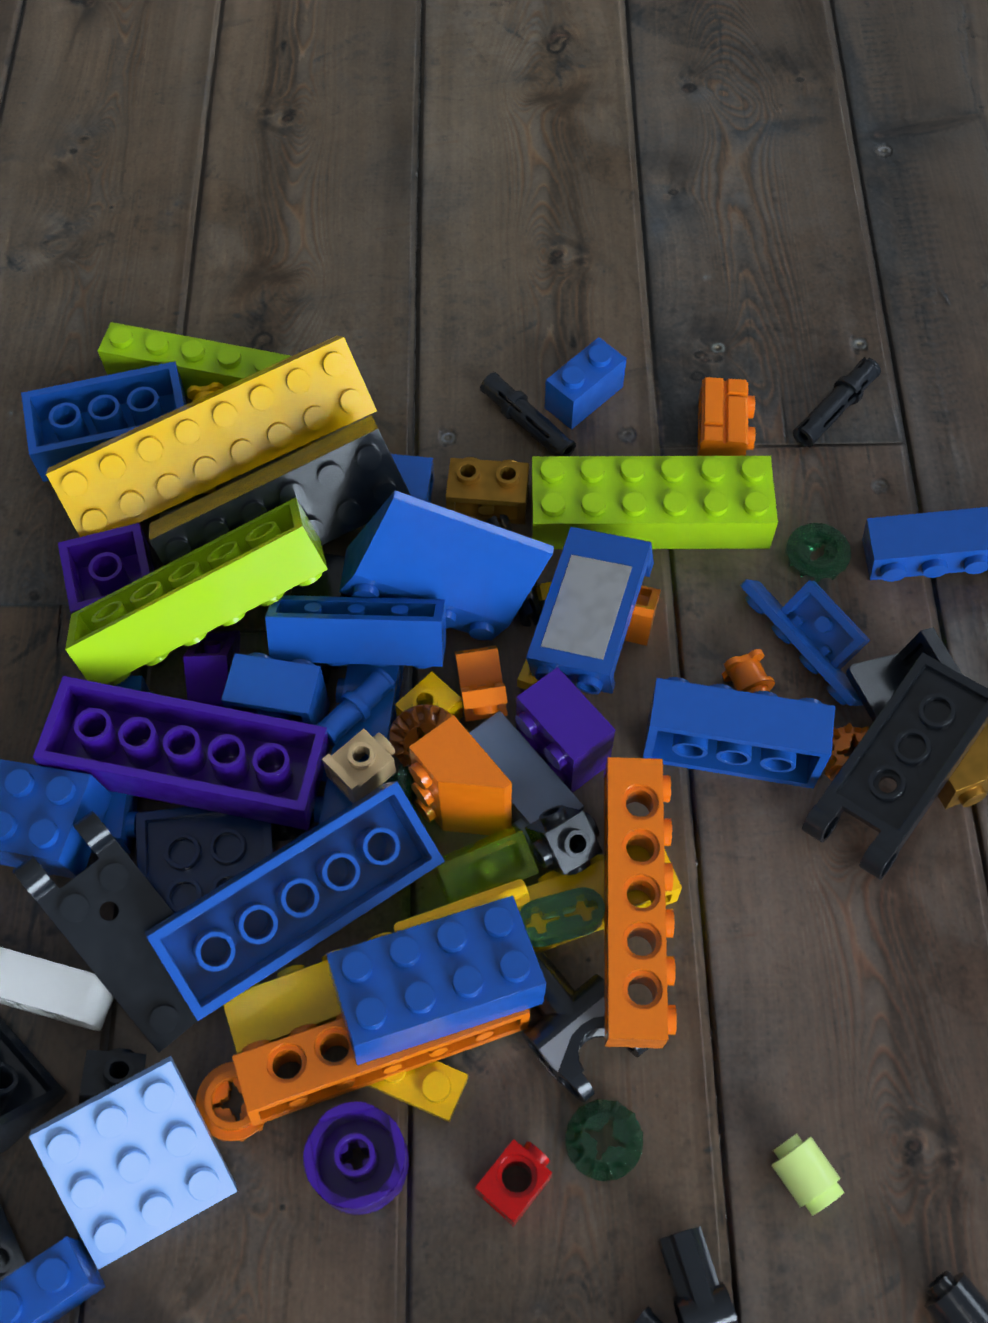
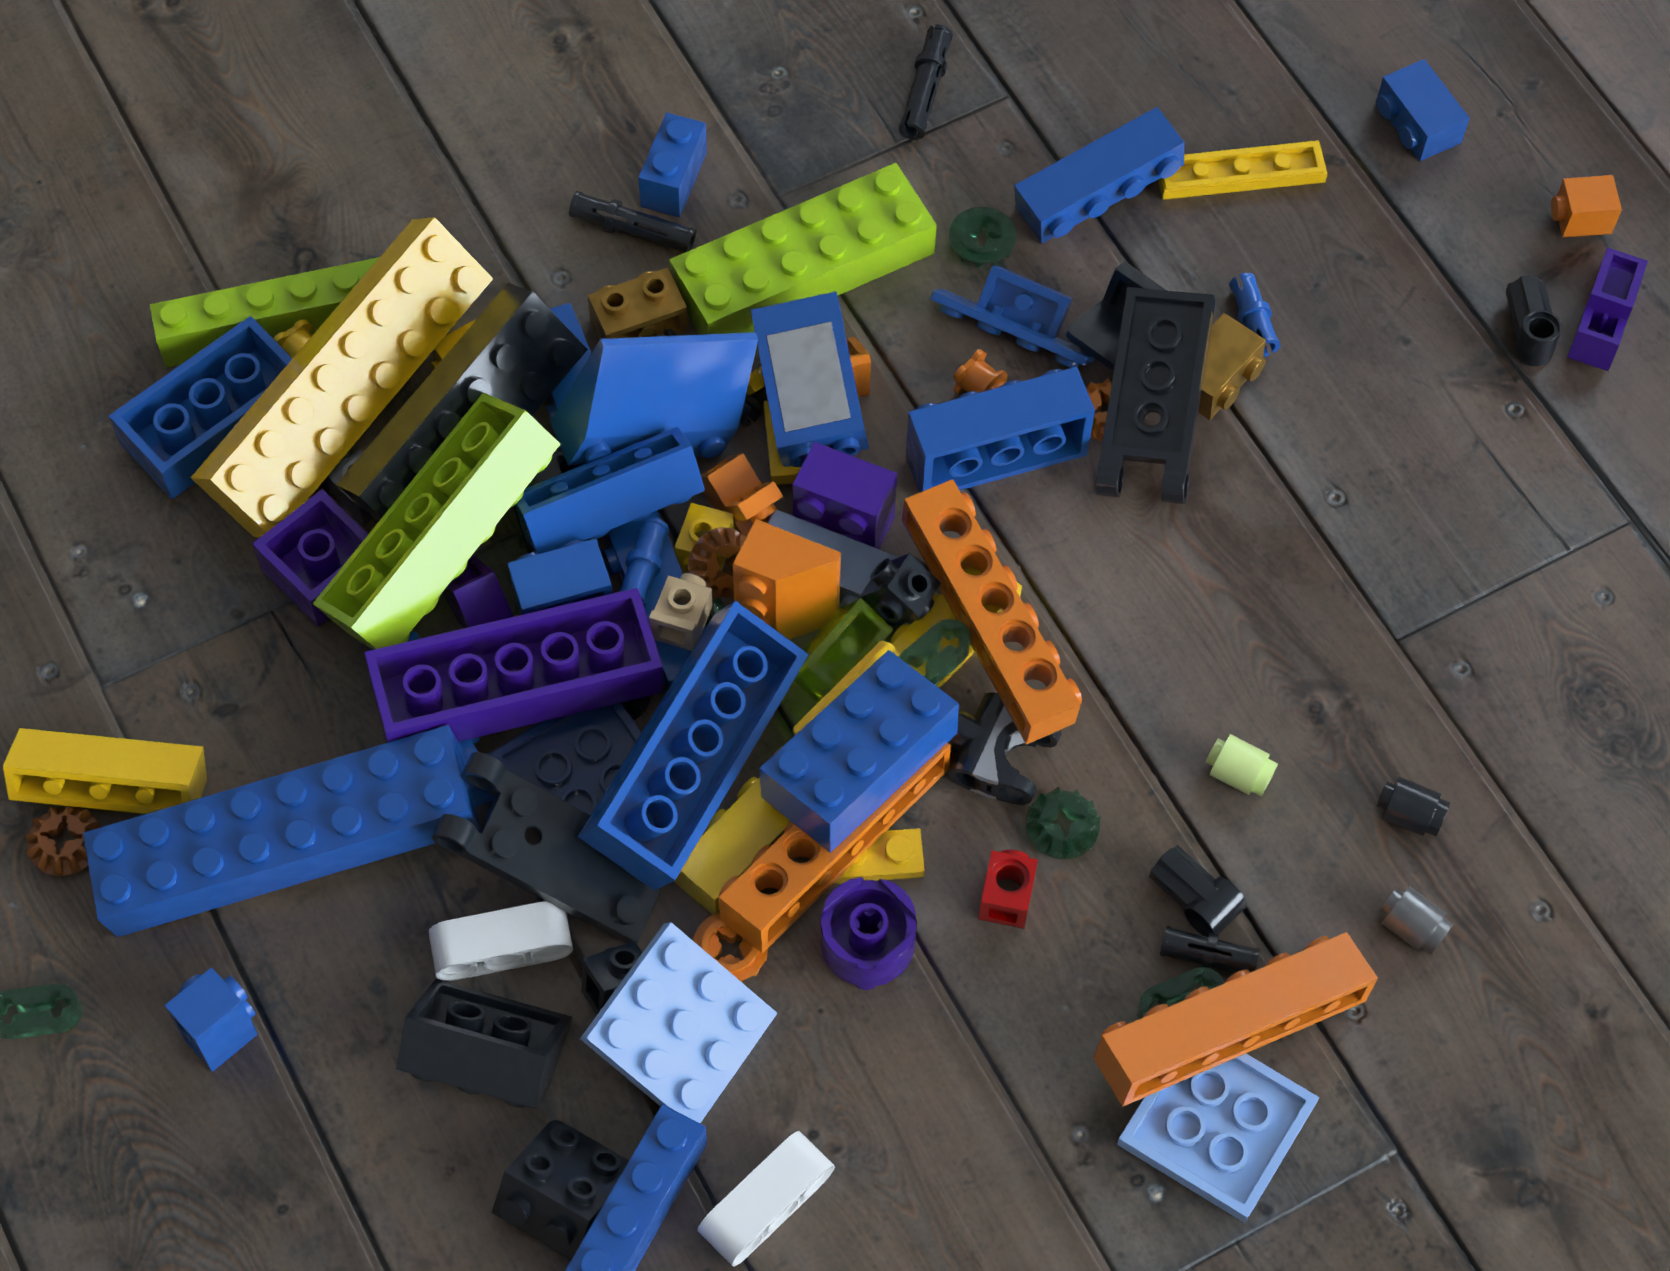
camera: 30 degrees left, 0 degrees up
(724, 418) = (827, 144): orange brick -> none

